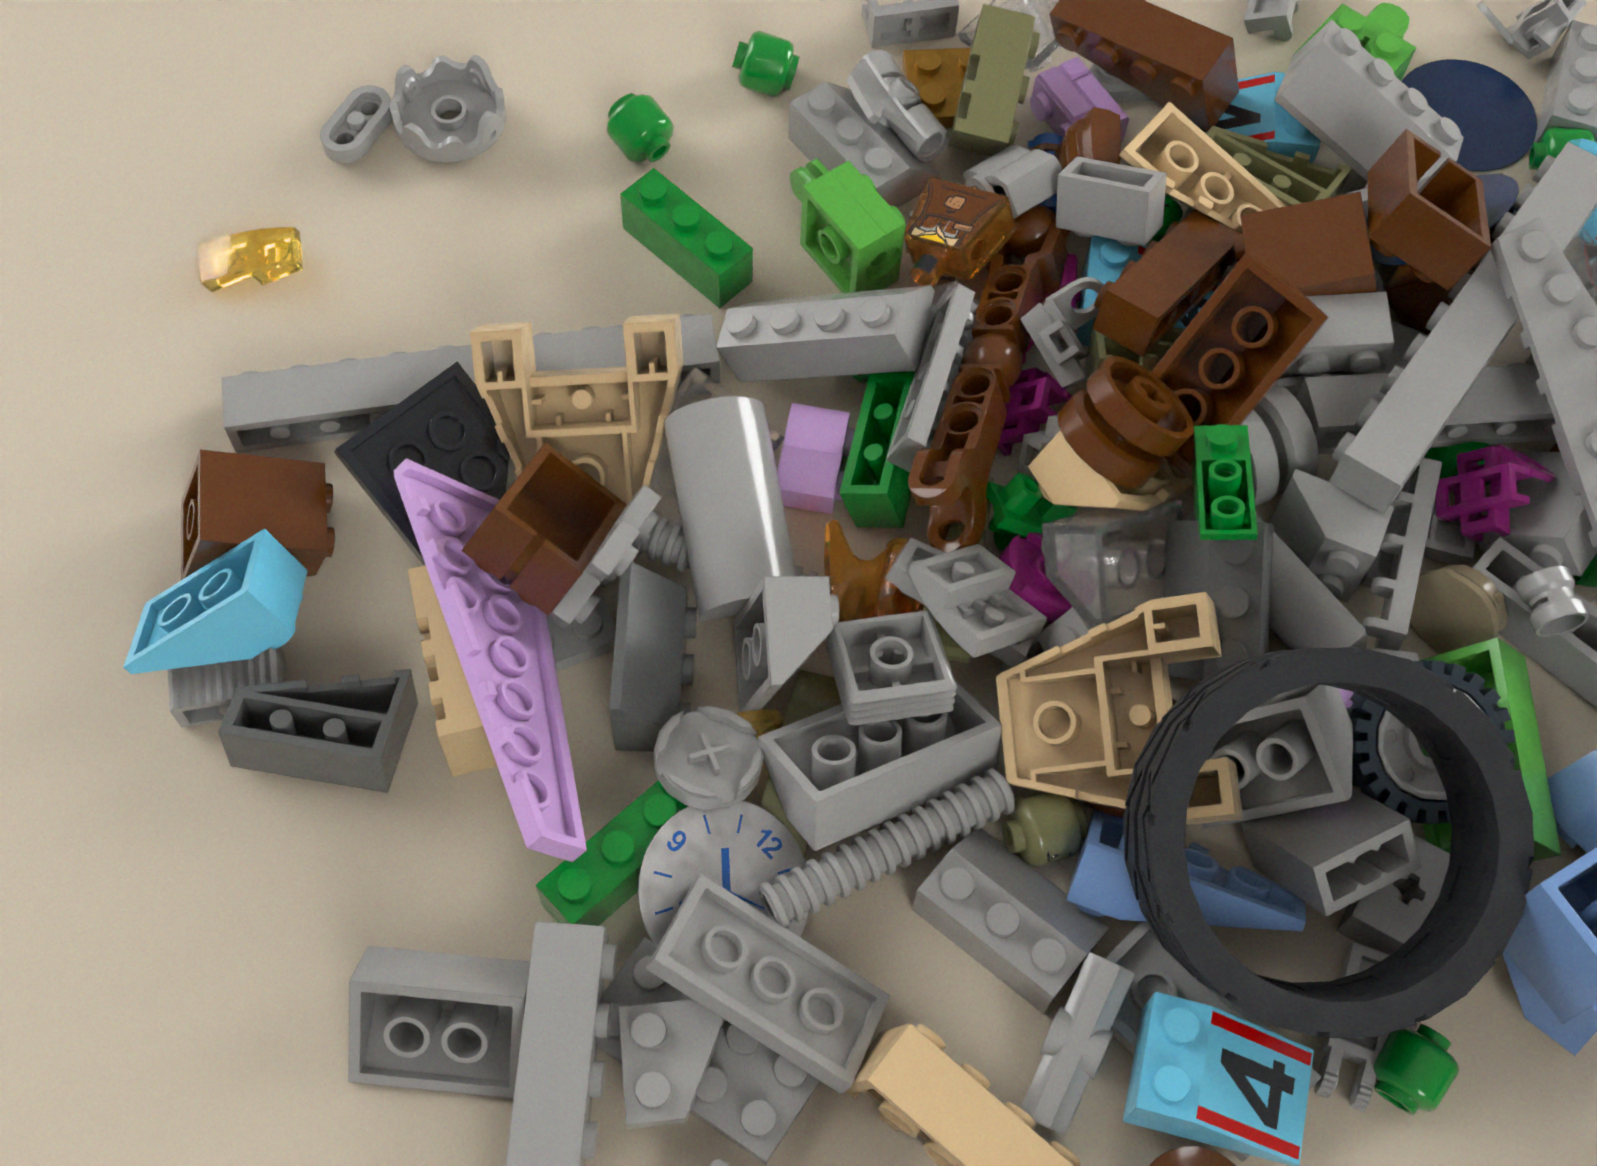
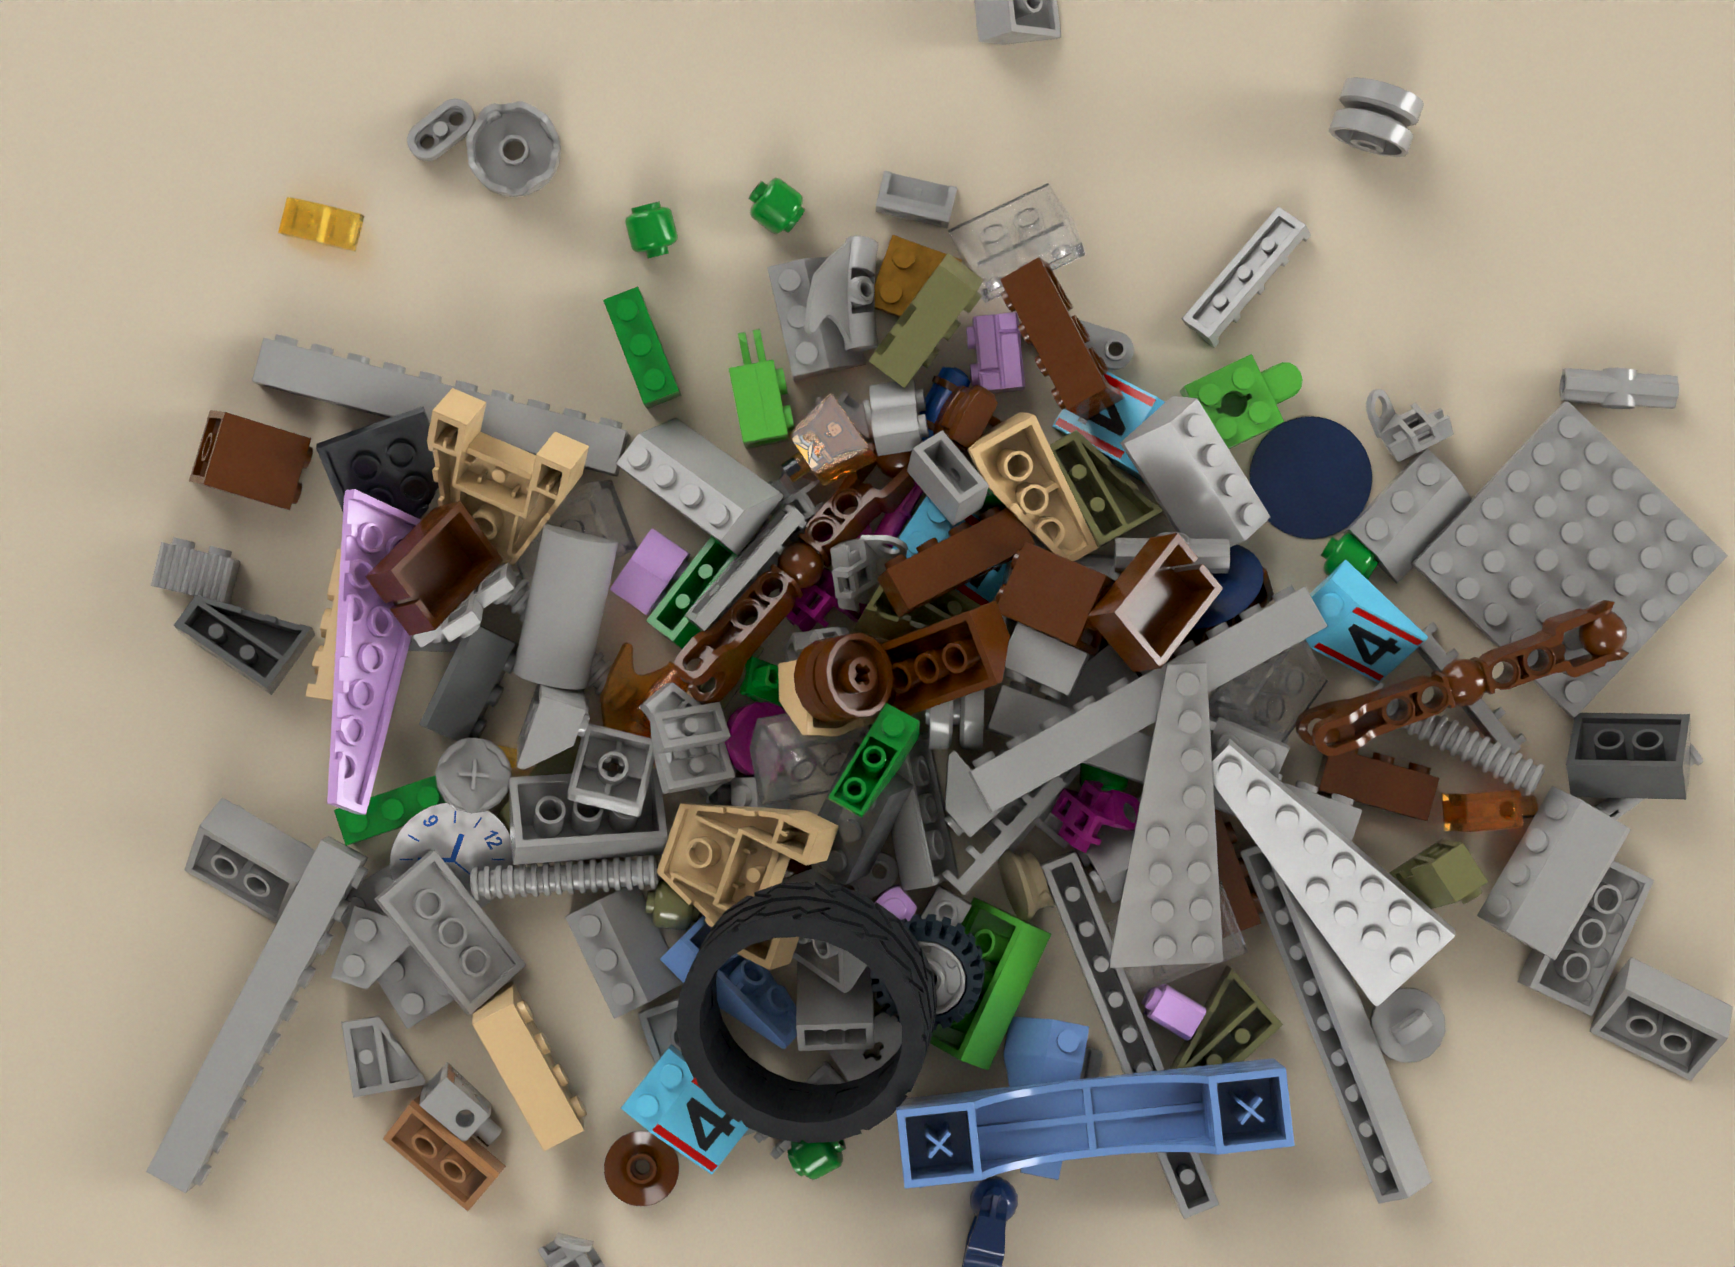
camera: 30 degrees right, 25 degrees up
(222, 610) = (202, 533): medium azure slope -> none
(1077, 1043) = (618, 1048): light grey piece -> none
(1552, 601) = (1069, 918): light grey wheel -> none

